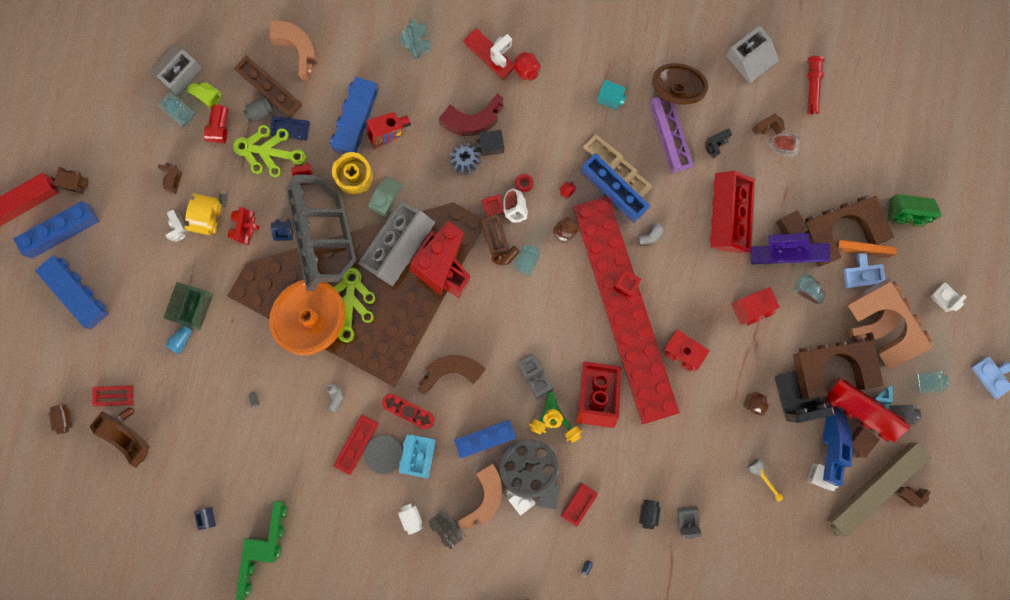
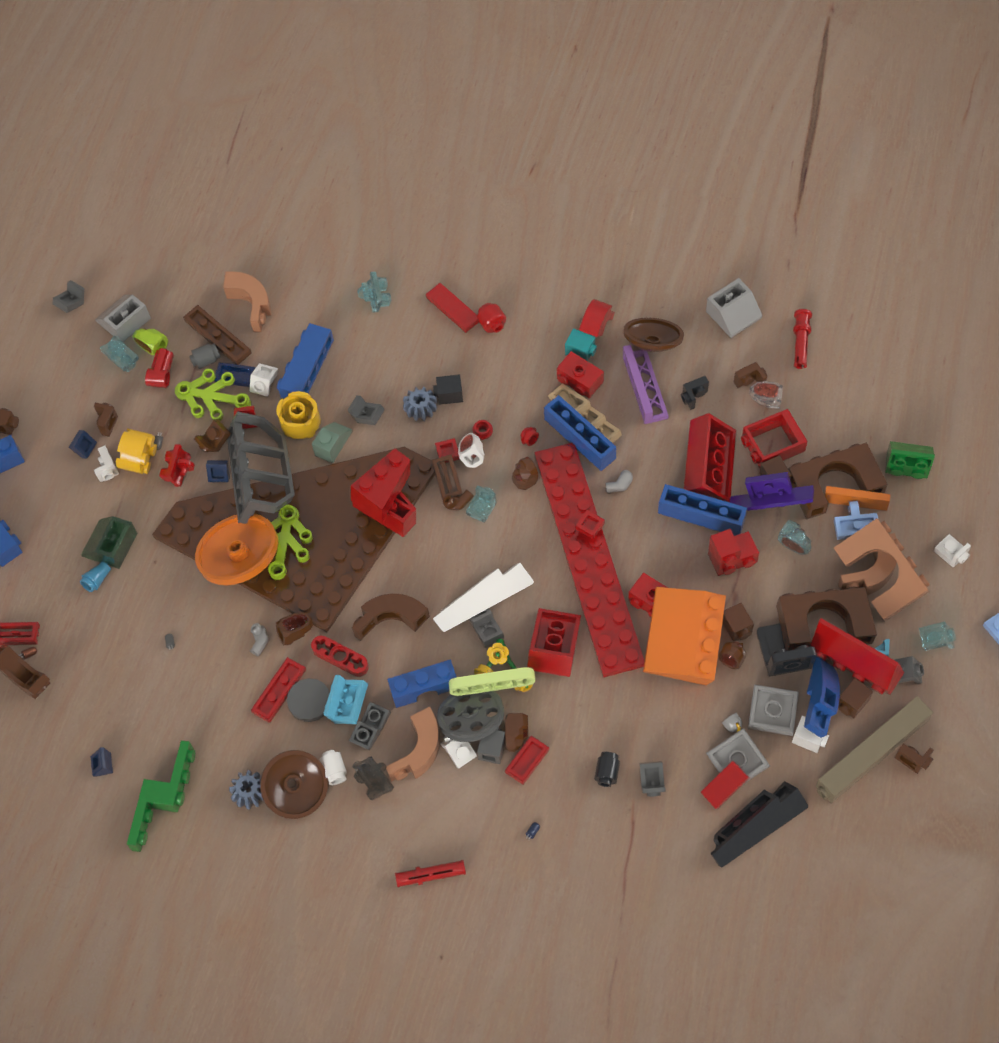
camera: 10 degrees right, 20 degrees down
(121, 49) = (71, 298): none -> dark grey bracket
(152, 205) = (82, 444): none -> dark blue tile
(274, 197) = (213, 438): none -> reddish brown bracket
(315, 133) = (262, 379): none -> white bracket
(330, 539) = (239, 791): none -> sand blue gear
(365, 387) = (293, 627): none -> reddish brown rock
(379, 548) = (309, 785): none -> reddish brown dish
(385, 128) = (336, 373): red torso -> none
(396, 243) = (333, 486): light grey slope -> none
(415, 167) = (365, 412): none -> dark grey bracket
(440, 477) = (370, 726): none -> dark grey slope
(472, 124) = (425, 371): dark red arch -> none
(500, 46) = (463, 299): white bracket -> none
(533, 351) = (483, 595): none -> white wedge
(546, 440) = (491, 681): none -> yellowish green beam
(569, 481) = (515, 730): none -> reddish brown rock
(611, 126) = (580, 375): none -> red brick
(626, 68) = (596, 318): none -> red brick
(716, 390) = (685, 634): none -> orange slope
(728, 265) = (701, 510): none -> blue brick
(751, 526) = (725, 785): none -> red tile
(760, 373) = (737, 622): none -> reddish brown brick
(761, 501) = (742, 751): none -> light grey plate
(777, 556) = (757, 821): none -> black wedge
(791, 454) = (773, 710): none -> light grey plate
(807, 182) = (769, 423): none -> red window

